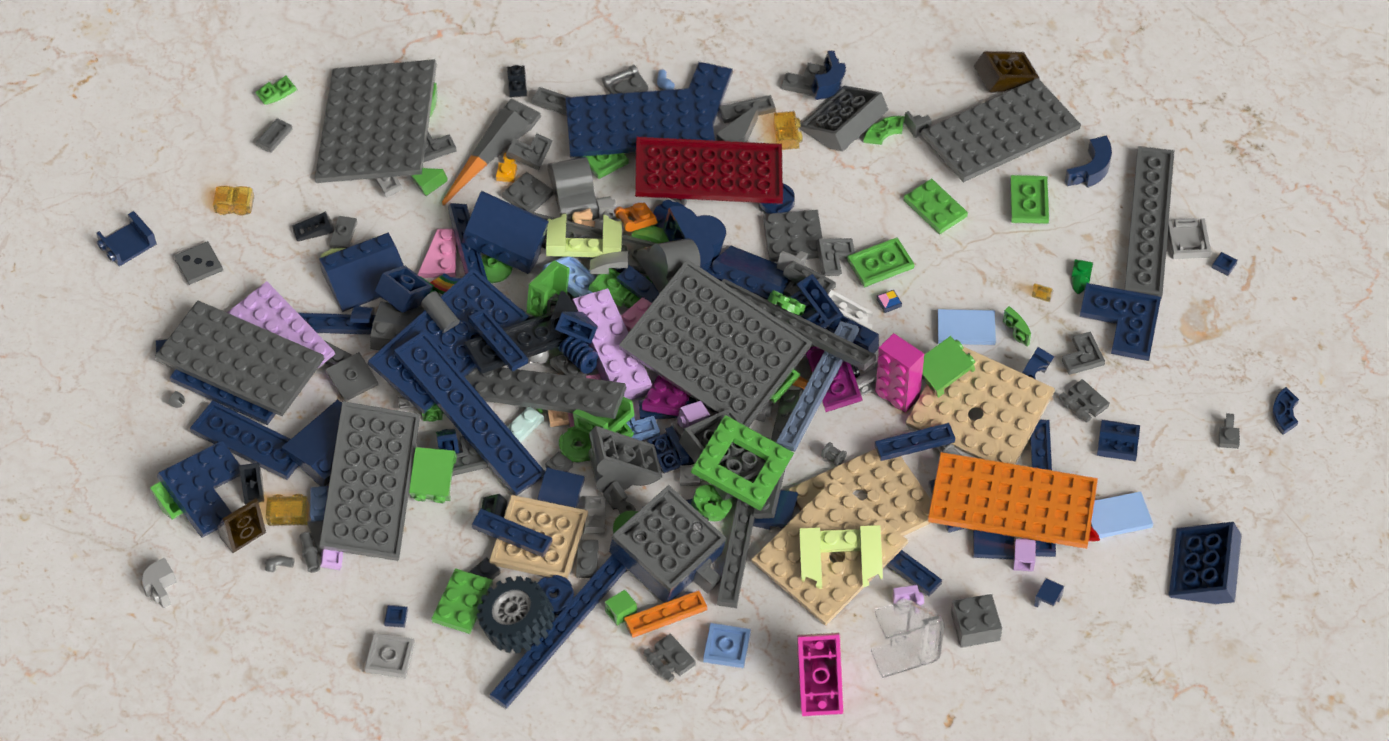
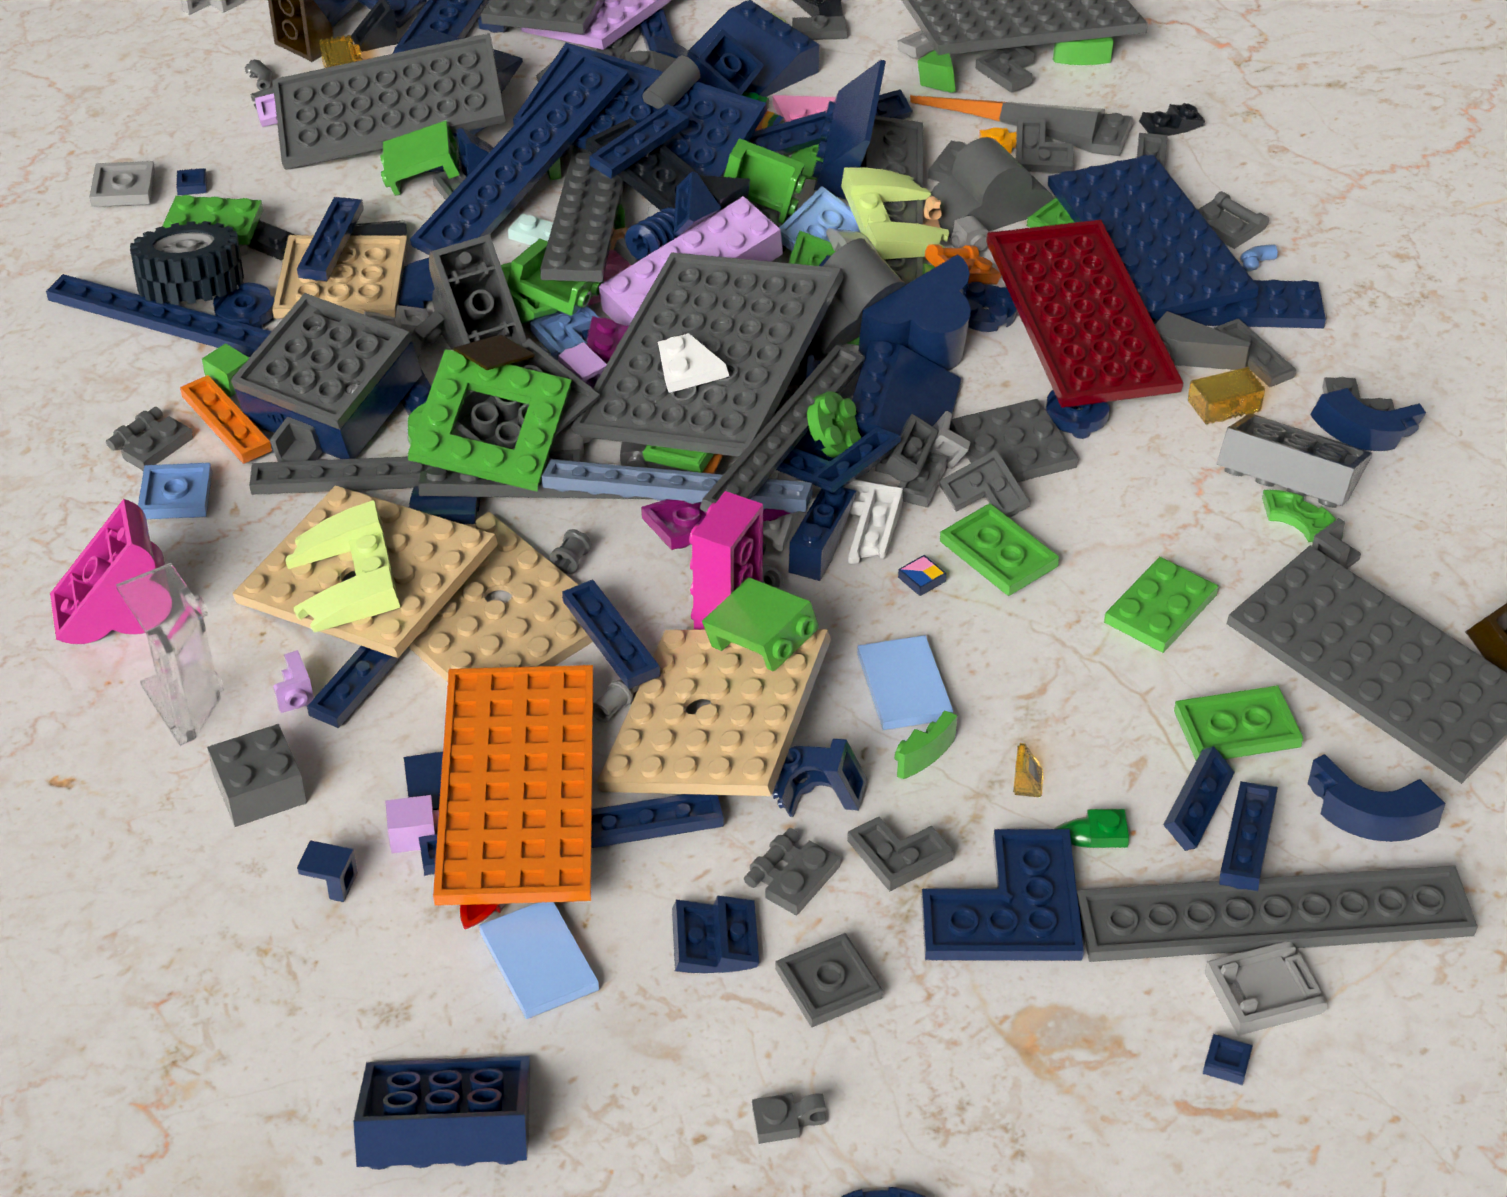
camera: 75 degrees right, 10 degrees down
(698, 445) = (494, 352): none -> dark brown window
(728, 355) = (689, 363): none -> white wing
(1075, 228) = (1199, 798): none -> dark blue plate
(1106, 214) = (1248, 836): none -> dark blue plate
(1156, 399) = (828, 980): none -> dark grey plate

